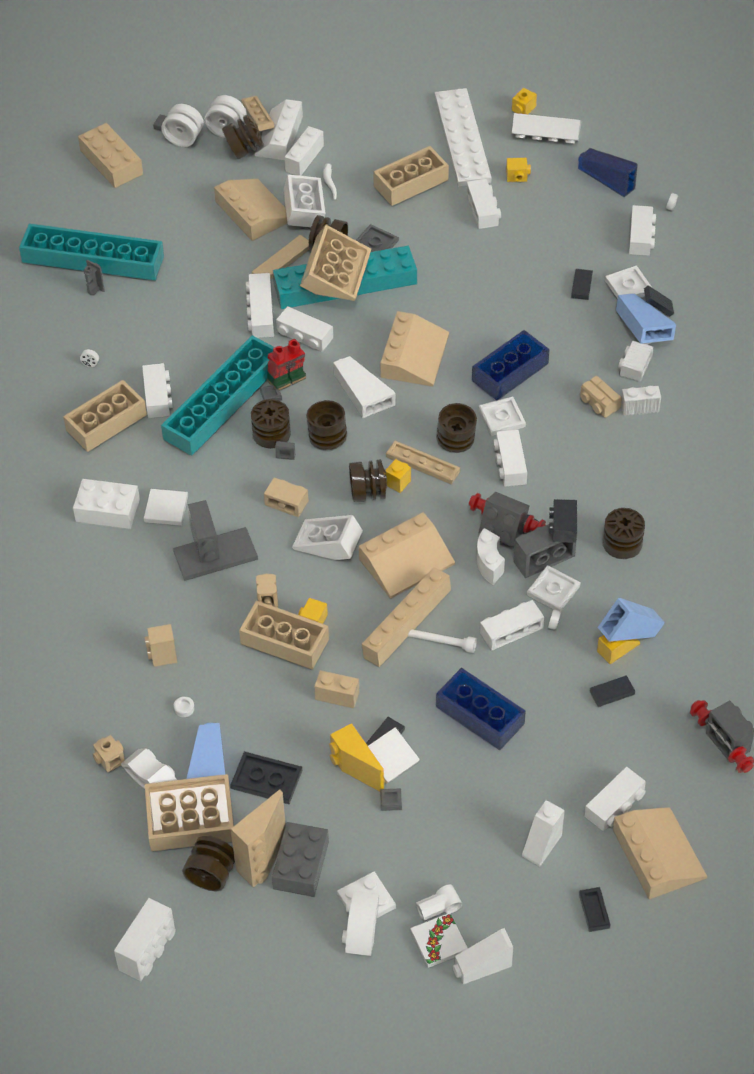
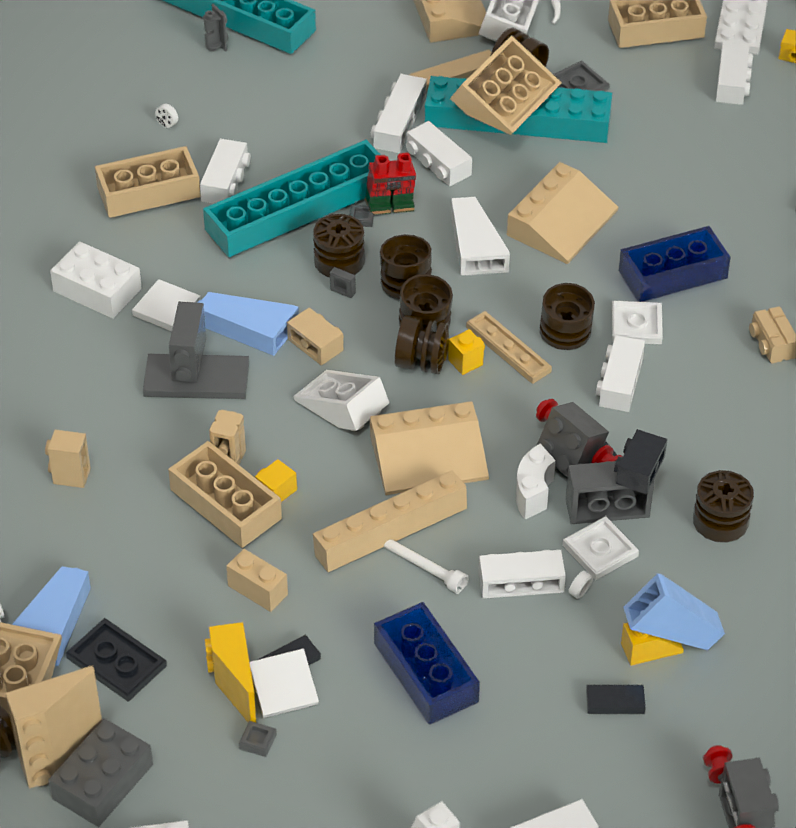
camera: 20 degrees right, 5 degrees down
(184, 706) = (62, 541): white tile -> none
(234, 500) = (249, 320): none -> light blue slope
(355, 445) = (426, 298): none -> dark brown wheel

